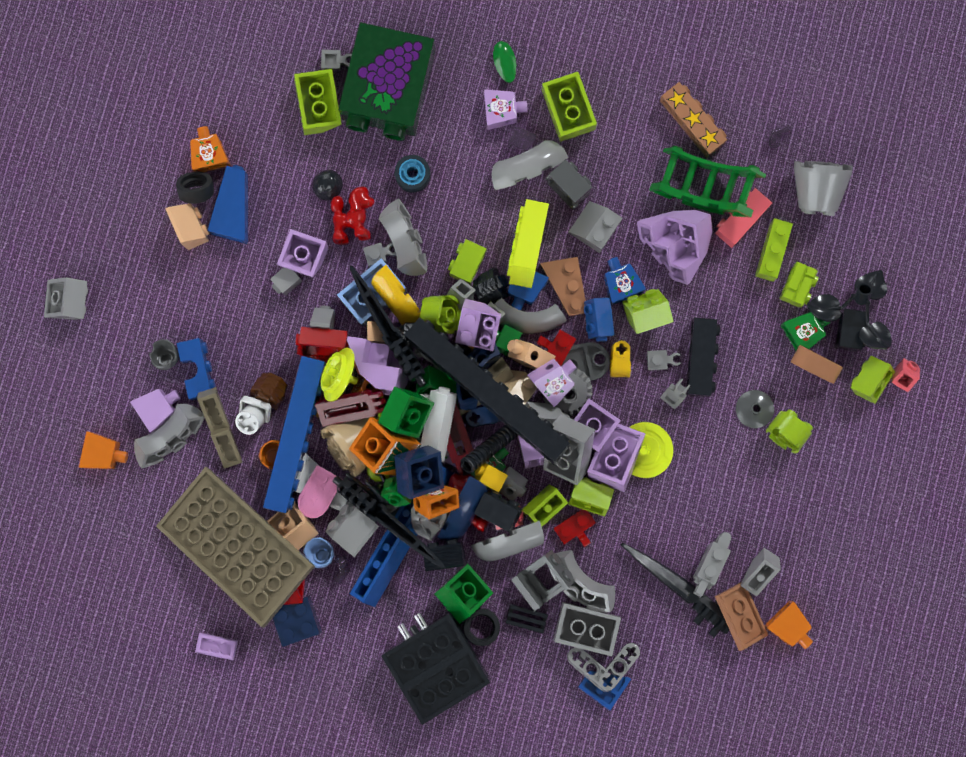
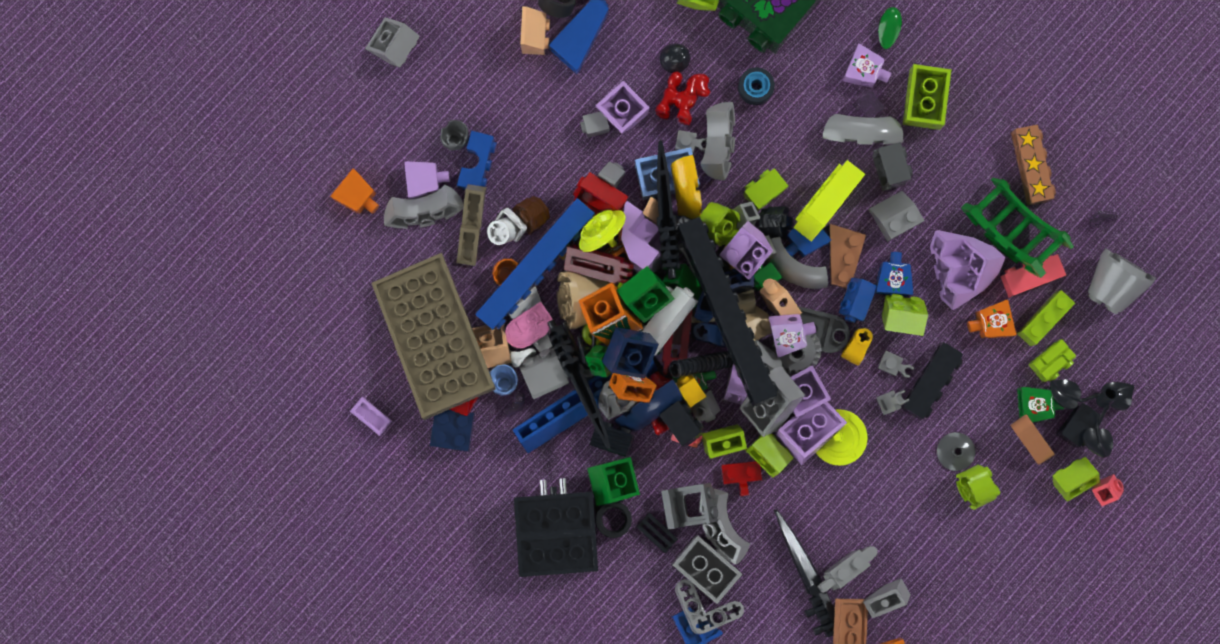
camera: 20 degrees right, 0 degrees up
(322, 525) = (518, 357): none -> white piece
(505, 546) = (671, 458): light grey brick -> none
(559, 347) = (809, 307): red plate -> none
(729, 276) = (994, 321): none -> orange torso

